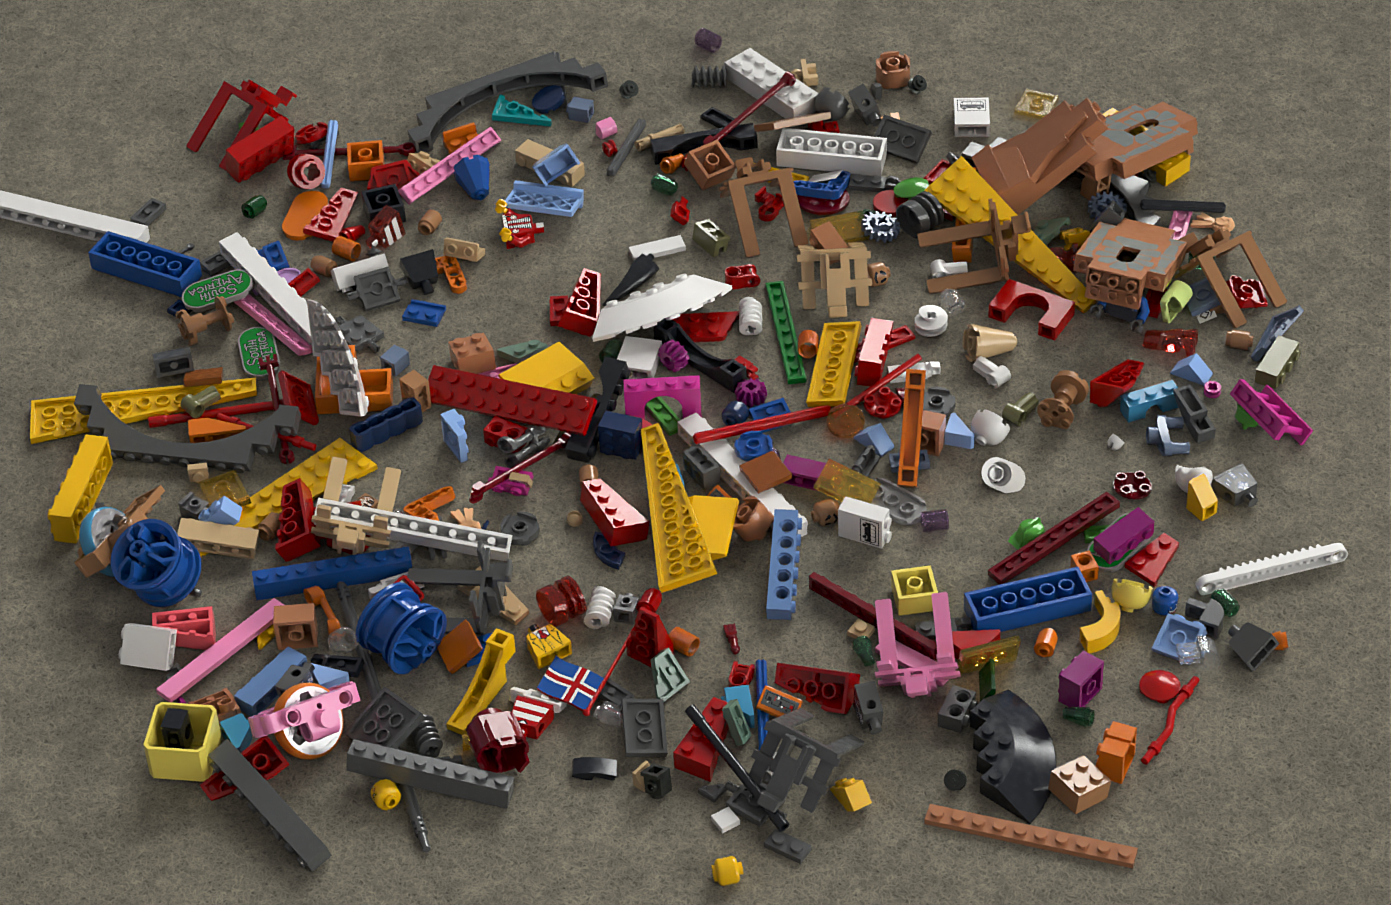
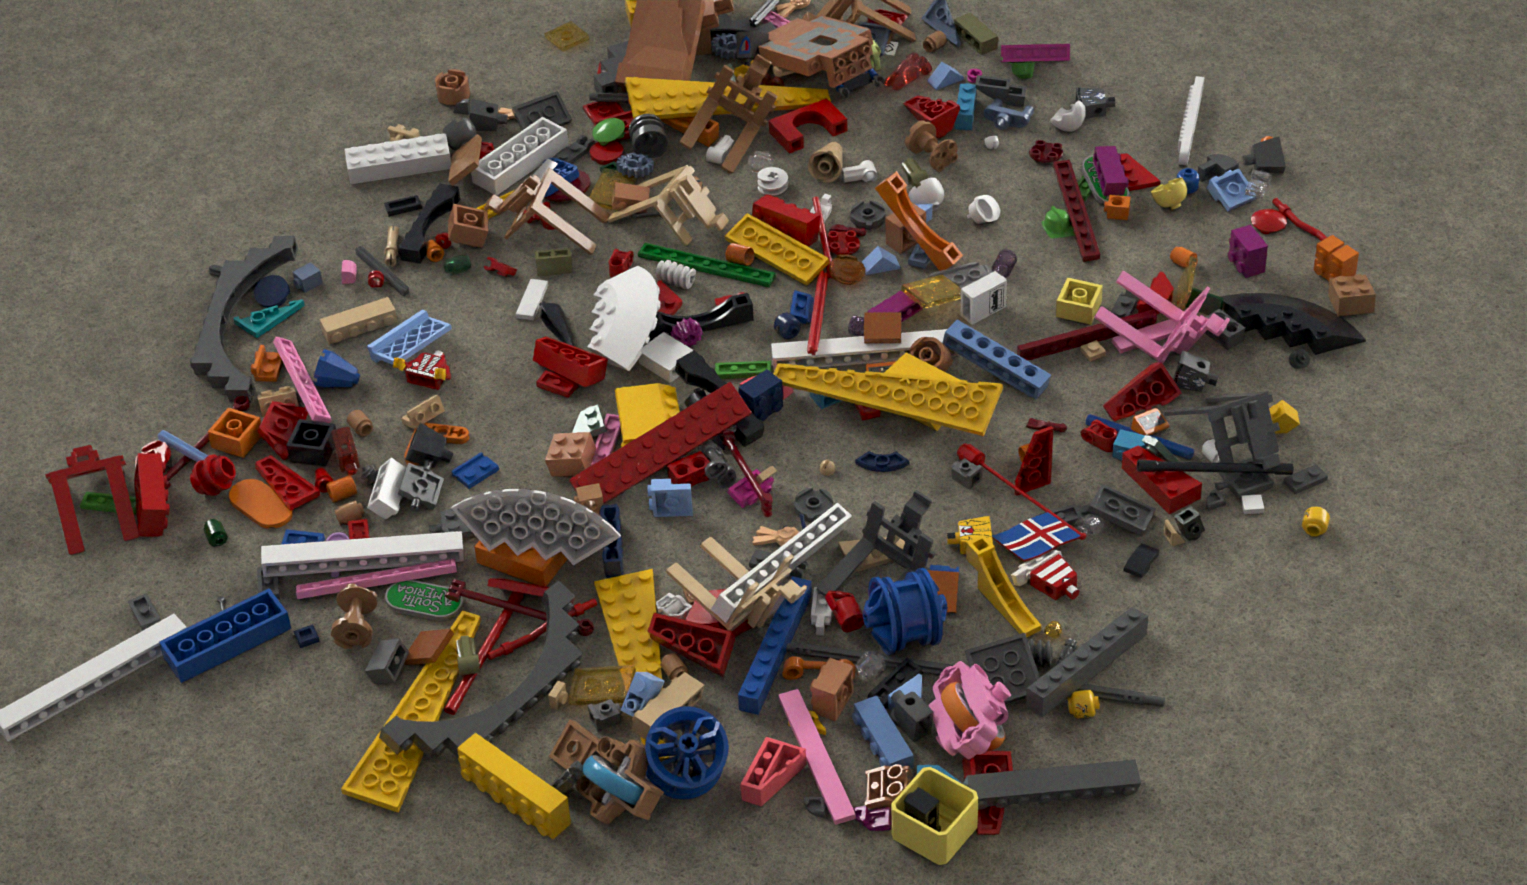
camera: 60 degrees left, 0 degrees up
(147, 646) = (778, 805): white brick -> none
(210, 429) = (509, 667): orange slope -> none
(231, 285) = (318, 594): tile -> none
(424, 506) = (743, 556): orange beam -> none
(498, 741) = (1081, 599): dark red piece -> none
(555, 163) = (384, 306): light blue piece -> none
(561, 601) = (943, 509): clear red wheel -> none
(587, 473) = (788, 439): medium nougat brick -> none
(599, 608) = (955, 487): white piece -> none
(611, 349) = (643, 371): clear green brick -> none
(612, 514) = (847, 438): red wedge -> none
(628, 89) = (311, 240): pearl dark grey wheel -> none
(667, 674) = (1071, 474): sand green wing -> none
(683, 388) = (748, 343): dark pink arch -> none
(701, 467) = (838, 359): dark grey brick -> none
(706, 39) = (298, 172): clear purple piece -> none
(709, 76) = (348, 188): dark grey piece -> none
(751, 392) = (767, 307): magenta gear -> none
(752, 445) = (845, 324): blue tile -> none
(787, 80) = (417, 140): dark red hinge -> none
(825, 512) = (944, 317): medium nougat head -> none
(864, 650) = (1120, 355): clear green cone -> none
(866, 461) = (900, 274): dark grey hinge -> none
(917, 84) = (480, 83): pearl dark grey wheel -> none
(971, 117) = (551, 71): white brick -> none
(1028, 601) = (1138, 243): blue brick -> none
(1031, 836) = (1379, 345): nougat plate -> none
(1080, 715) = (1273, 270): clear green cone -> none
(1104, 632) = (1187, 217): yellow arch -> none
(1201, 498) = (1096, 122): yellow slope -> none
(1227, 601) = (1203, 152): clear green brick -> none

